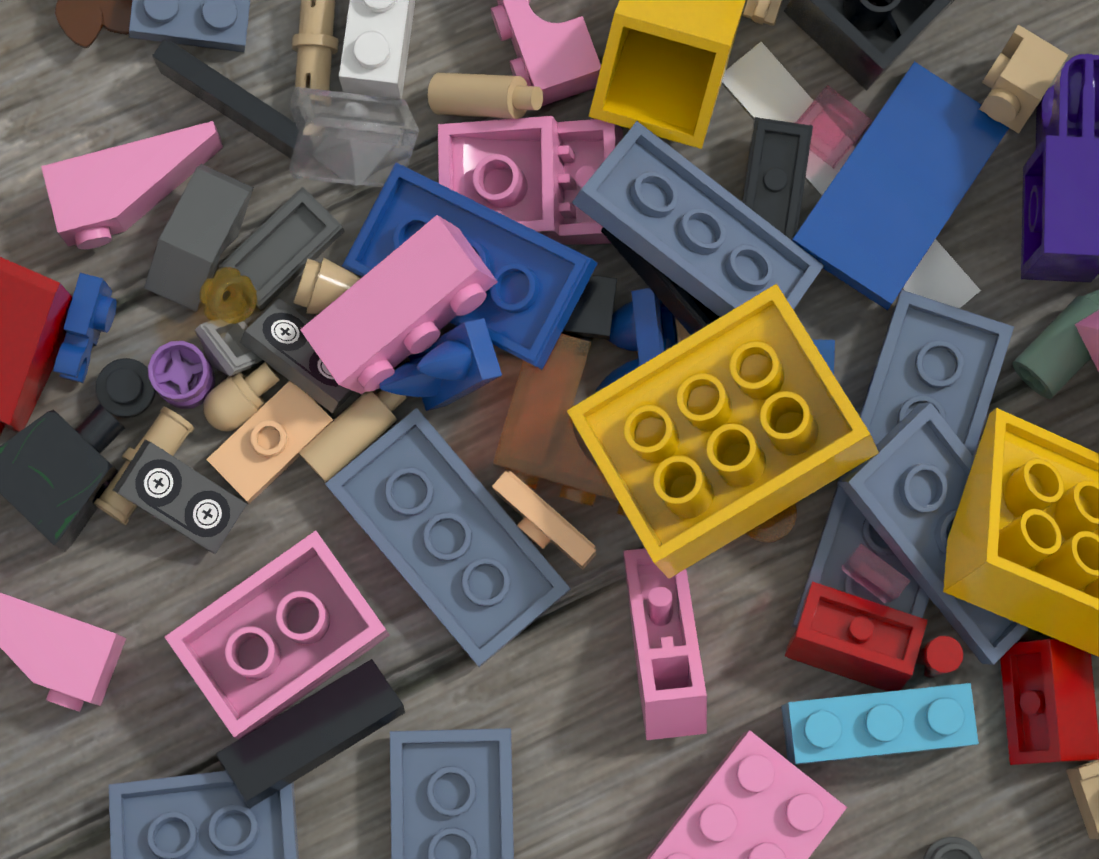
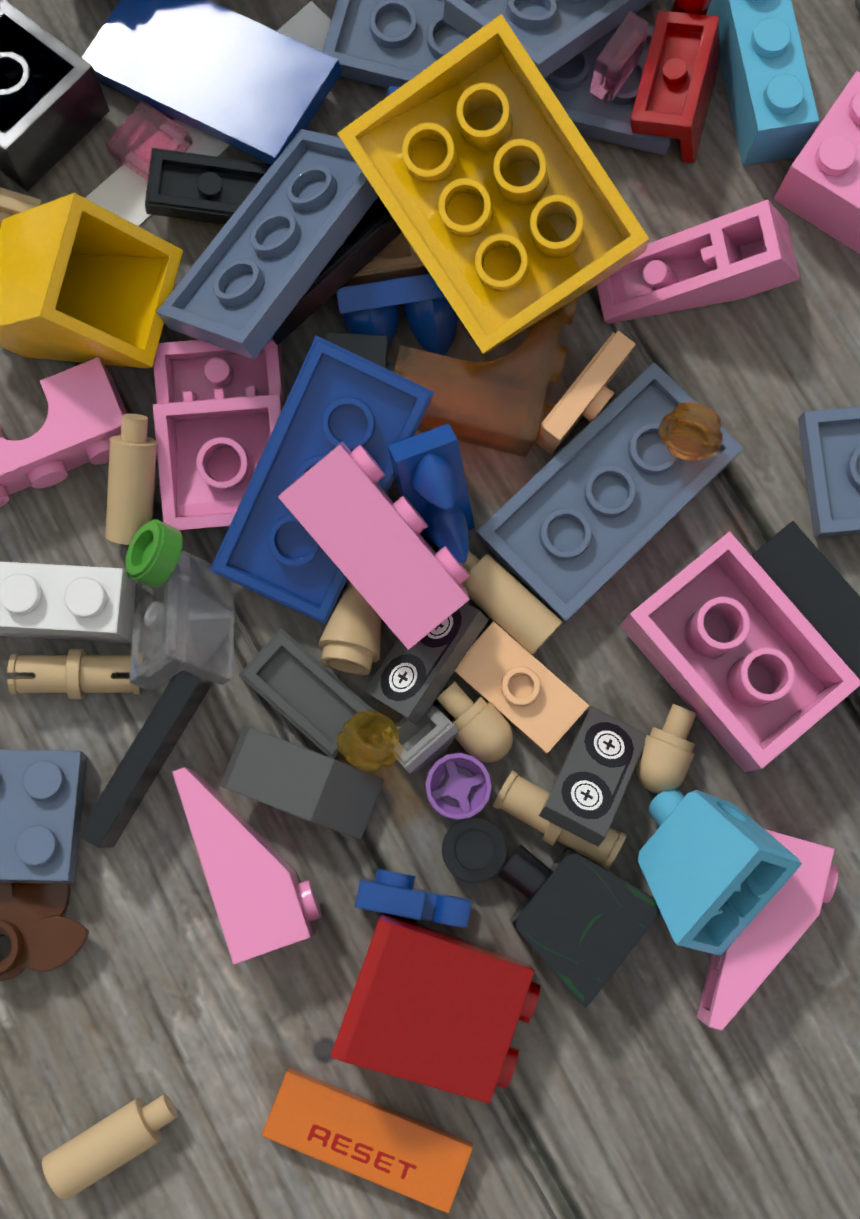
camera: 90 degrees left, 0 degrees up
(83, 586) = (710, 868): none -> medium azure torso
(196, 569) = (667, 753): none -> tan cylinder
(413, 112) = (154, 553): none -> bright green tile
(489, 609) = (691, 431): none -> clear orange plate

